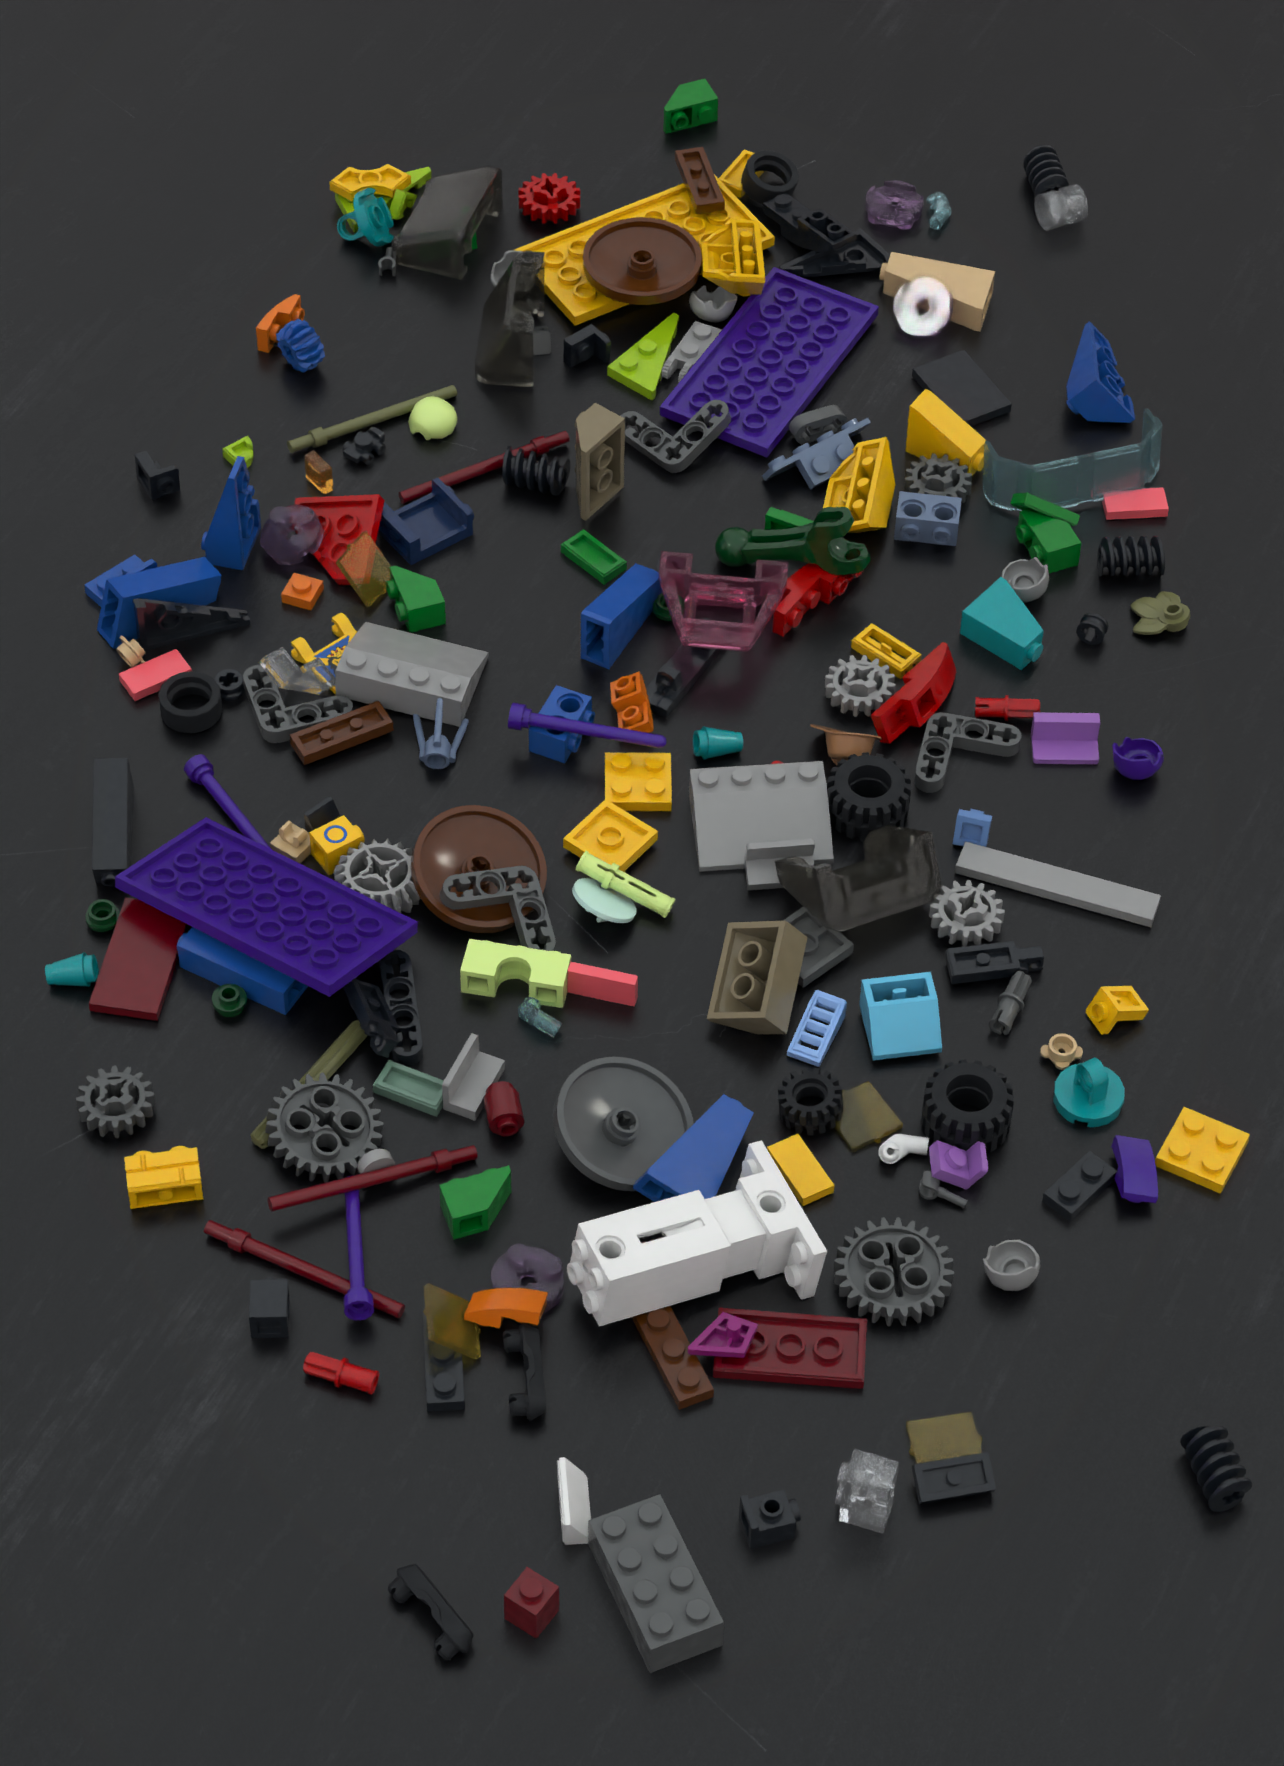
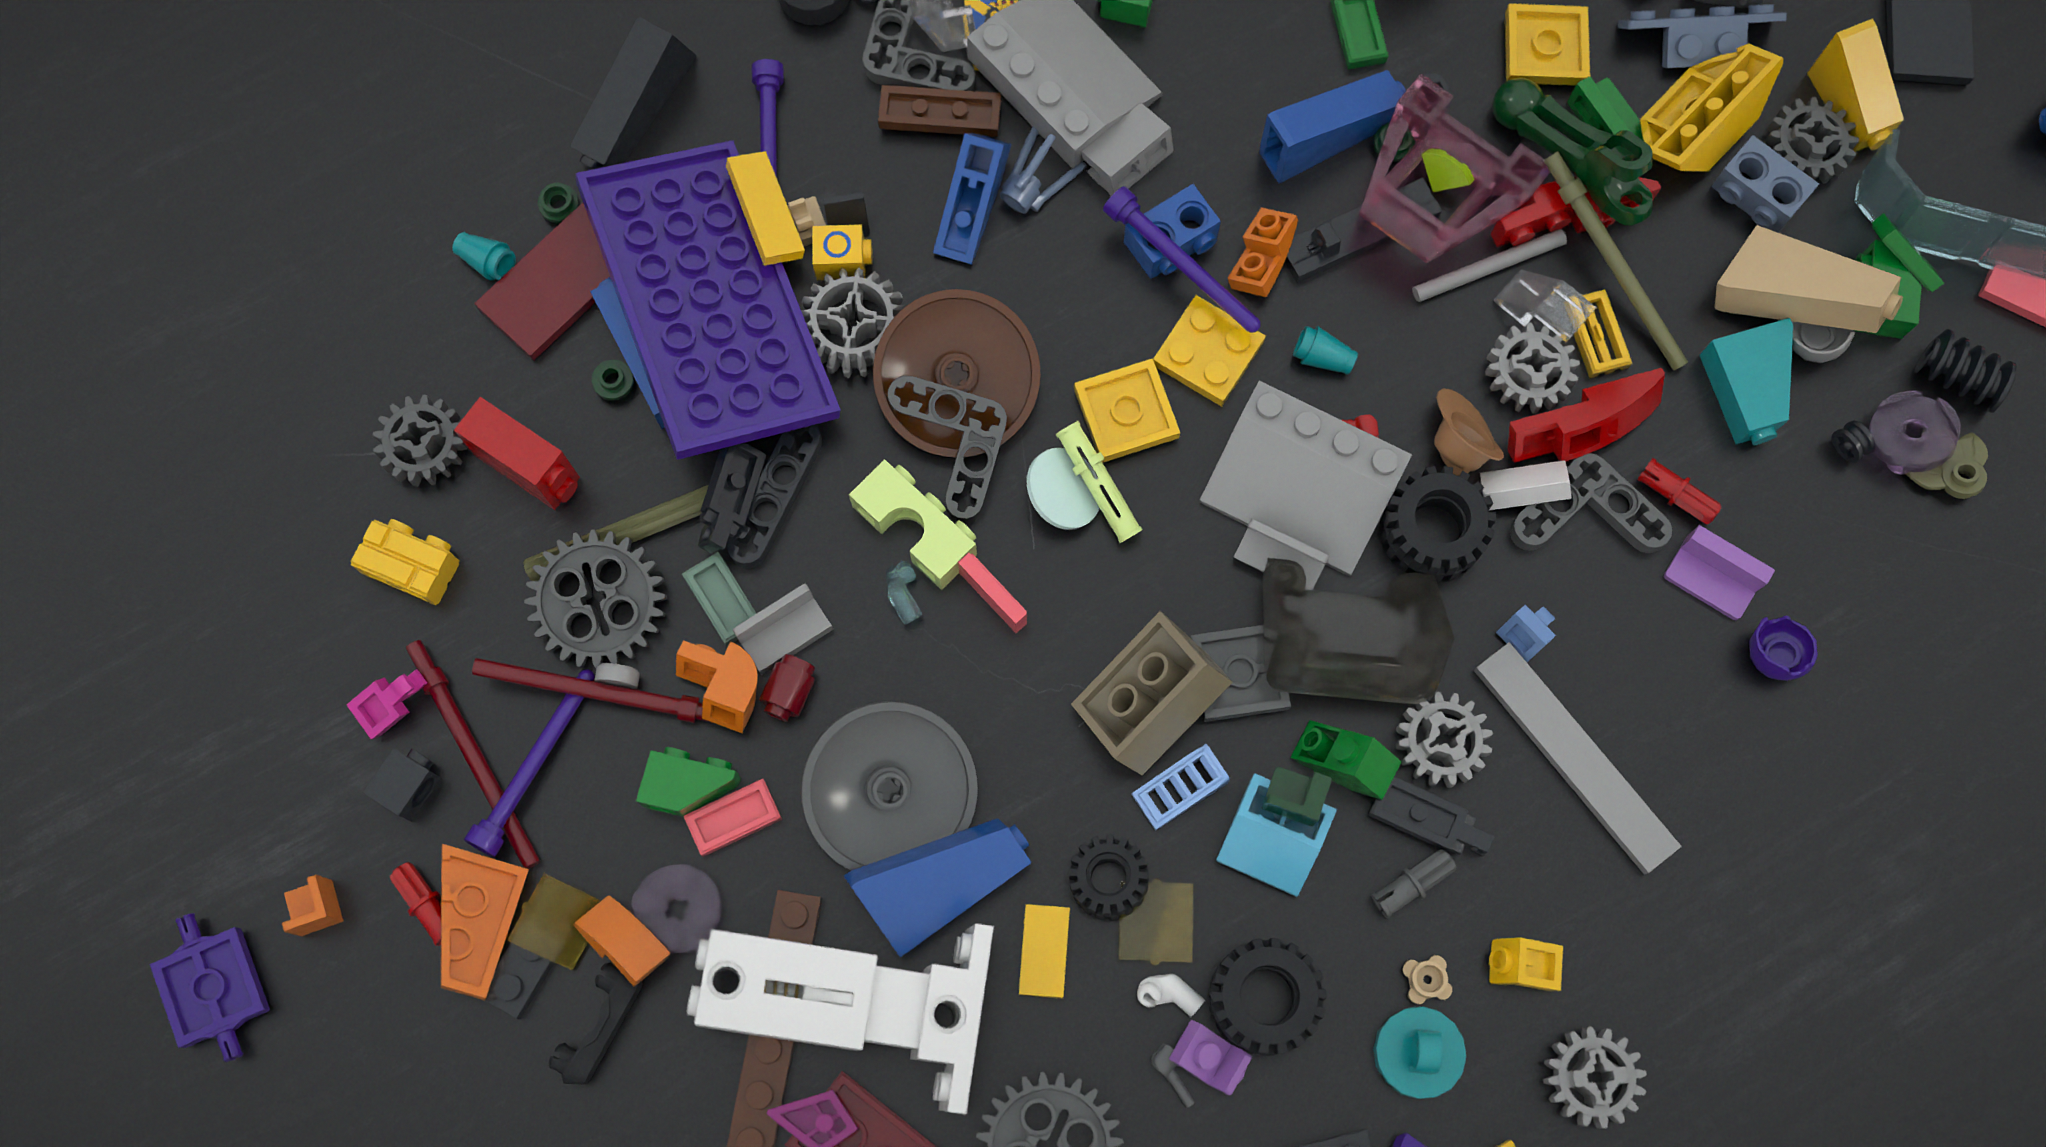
camera: 35 degrees right, 25 degrees up
(203, 1064) = (518, 453): none -> red brick
(215, 1270) = (381, 703): none -> dark pink plate
(221, 1505) = (209, 987): none -> dark purple plate
(261, 1416) = (312, 907): none -> orange panel
(265, 839) = (765, 208): none -> yellow tile
(389, 1352) = (475, 917): none -> orange wing
(405, 767) = (971, 196): none -> blue slope
(458, 1120) = (728, 679): none -> orange brick
(493, 692) = (1128, 149): none -> light grey hinge
(523, 1208) = (732, 817): none -> coral tile
(717, 603) = (1445, 171): none -> lime tile
(726, 506) = (1547, 43): none -> yellow plate
(786, 647) = (1489, 265): none -> light grey bar
(811, 570) = (1573, 192): none -> olive bar
(841, 639) = (1548, 300): none -> clear slope
(903, 974) = (1296, 795): none -> dark green panel
(914, 745) = (1527, 485): none -> white slope
(914, 951) = (1348, 758): none -> green slope
(984, 555) = (1808, 284): none -> tan slope
(1127, 617) = (1911, 454): none -> clear purple plate
(1207, 1044) = (1593, 1059): none -> light grey gear

